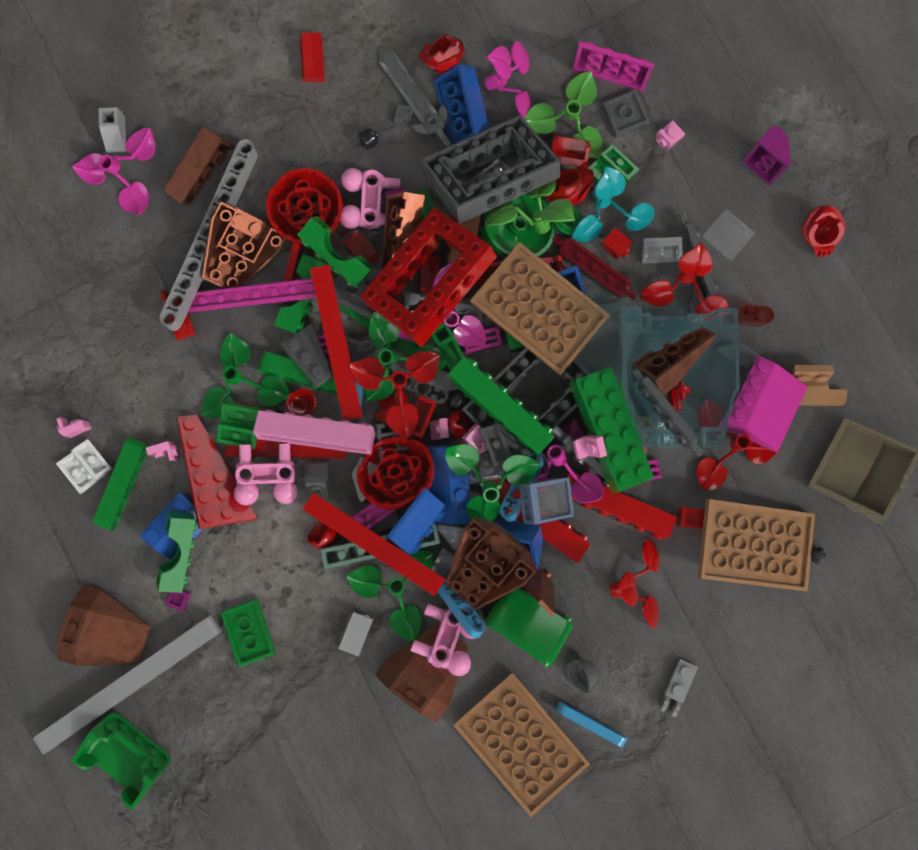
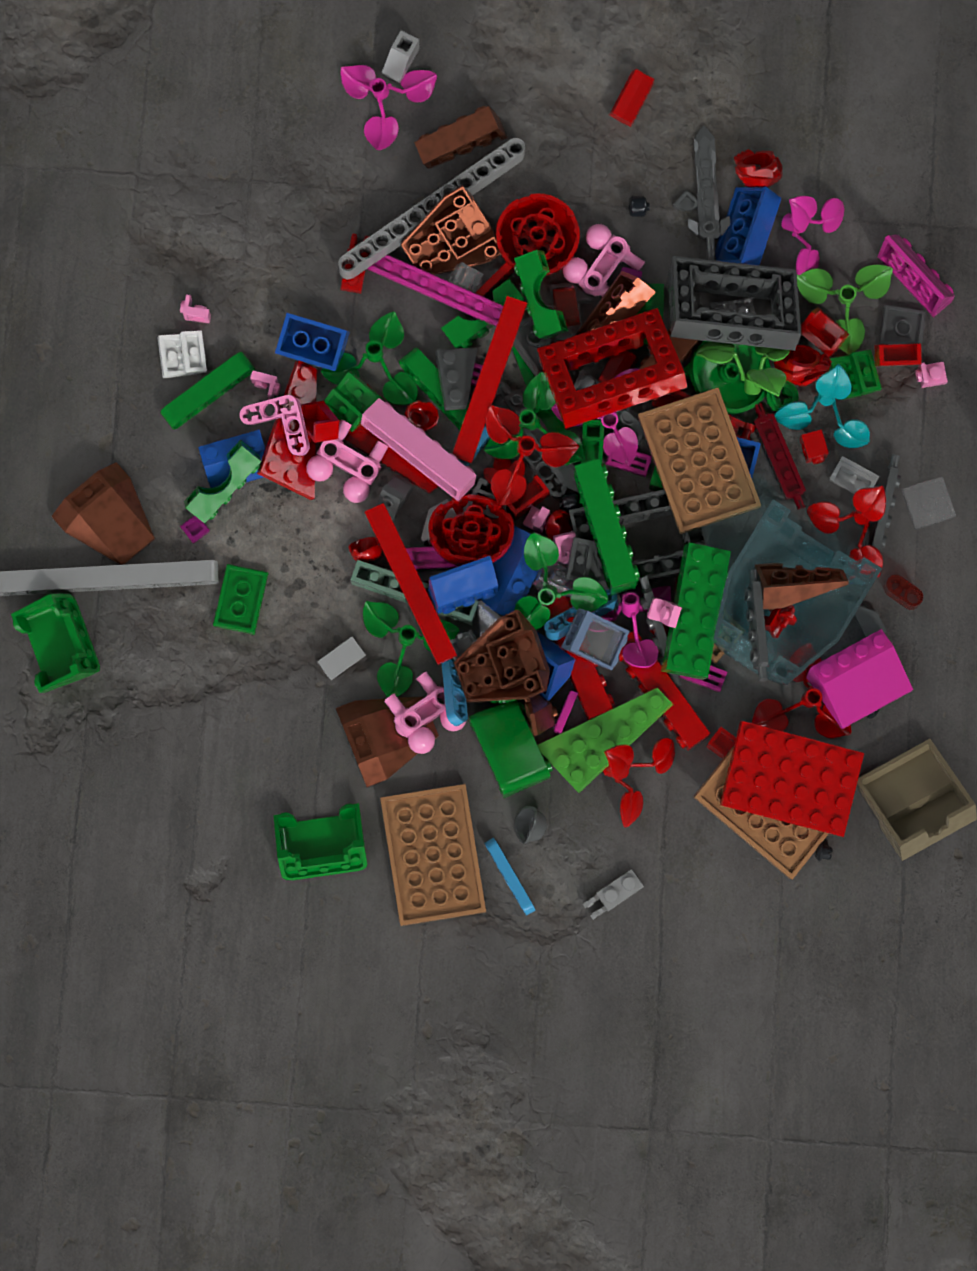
camera: 30 degrees right, 5 degrees down
(179, 396) = (312, 342): none -> blue slope
(194, 469) = (287, 416): none -> bright pink beam
(222, 458) = (320, 421): none -> red panel
(270, 273) = (466, 277): none -> clear brick
(427, 791) = (320, 844): none -> green windscreen
(554, 567) = (565, 712): none -> dark pink tile
(593, 580) = (580, 751): none -> bright green wing
(637, 134) = (897, 354): none -> red panel
(763, 516) = (791, 779): none -> red plate
(818, 390) = (921, 700): medium nougat plate -> none

